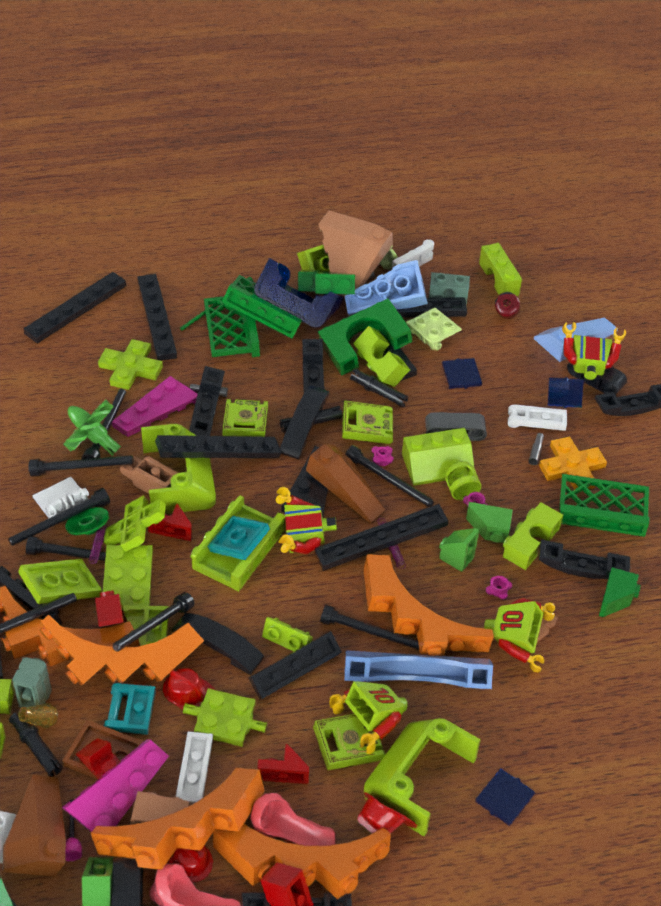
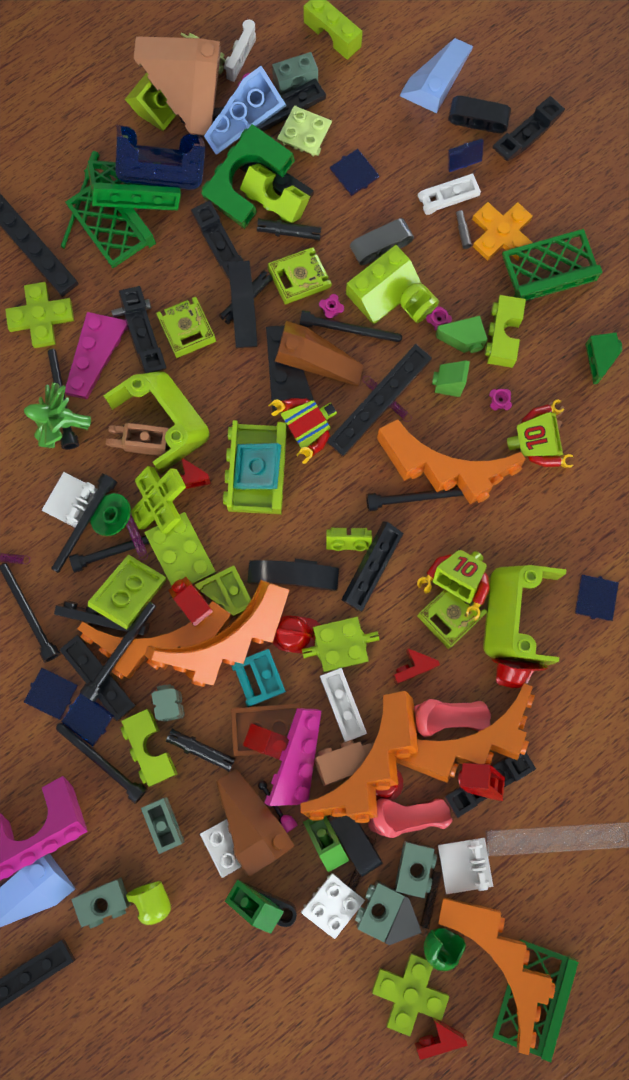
camera: 25 degrees left, 30 degrees up
(39, 467) = (28, 478): black piece -> none
(39, 715) = (190, 725): clear yellow cone -> none
(181, 604) = (243, 555): black piece -> none
(217, 447) = (184, 380): black plate -> none
(325, 282) = (178, 129): green arch -> none
(441, 669) = (515, 503): medium blue arch -> none
(509, 311) = (354, 72): dark red head -> none
(579, 563) = (561, 338): black slope -> none
(591, 354) = (471, 99): torso -> none

